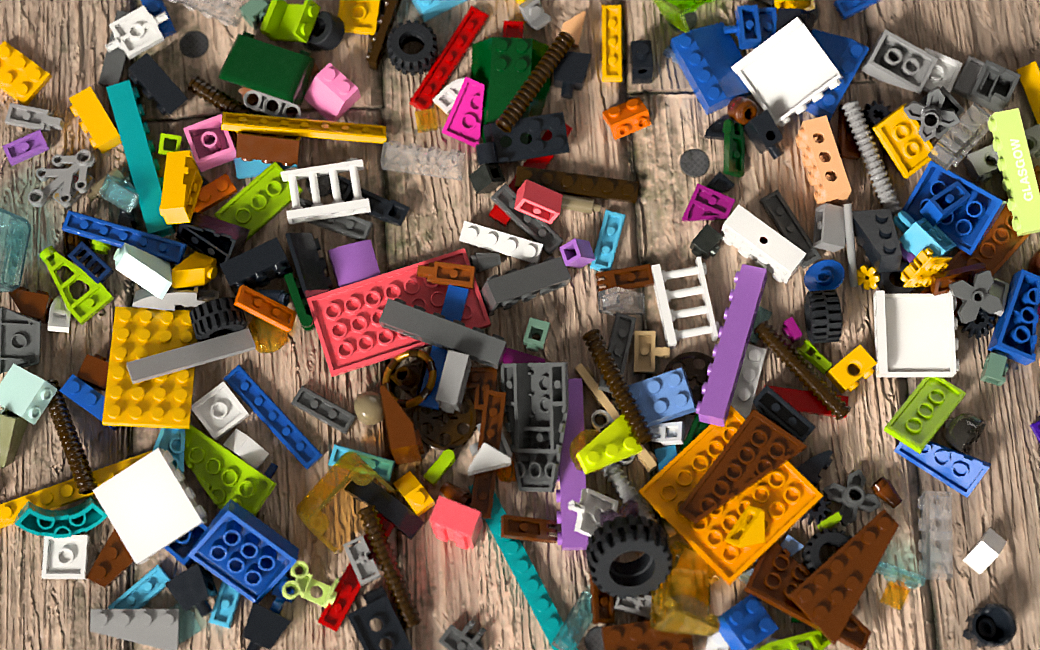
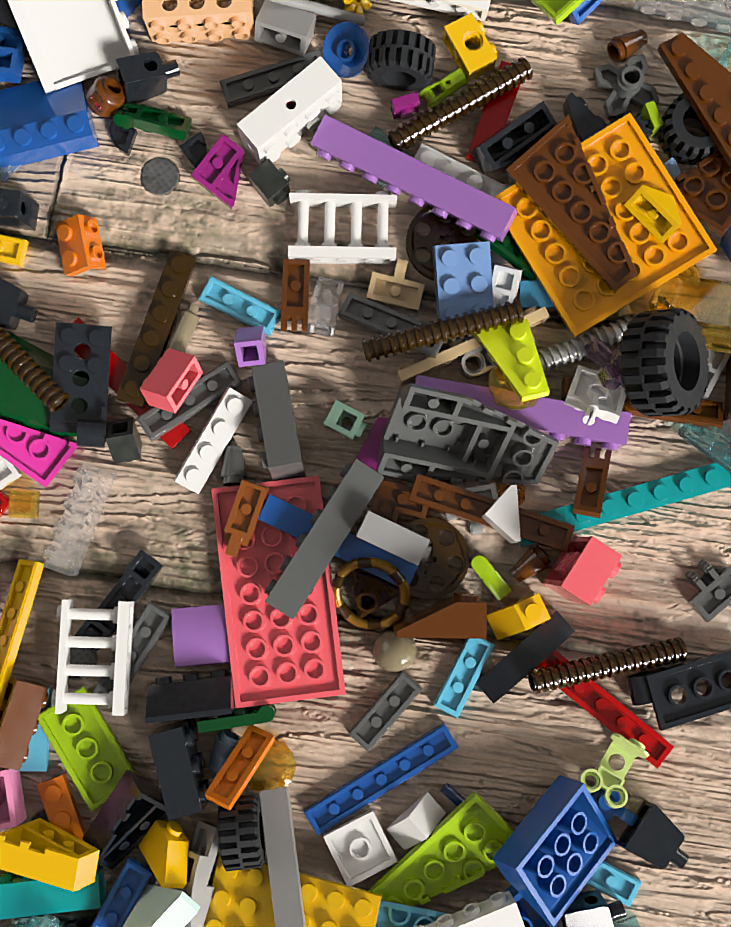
camera: 85 degrees left, 10 degrees up
(347, 468) = (475, 694): clear yellow windscreen -> none
(359, 560) = (595, 701): light grey piece -> none

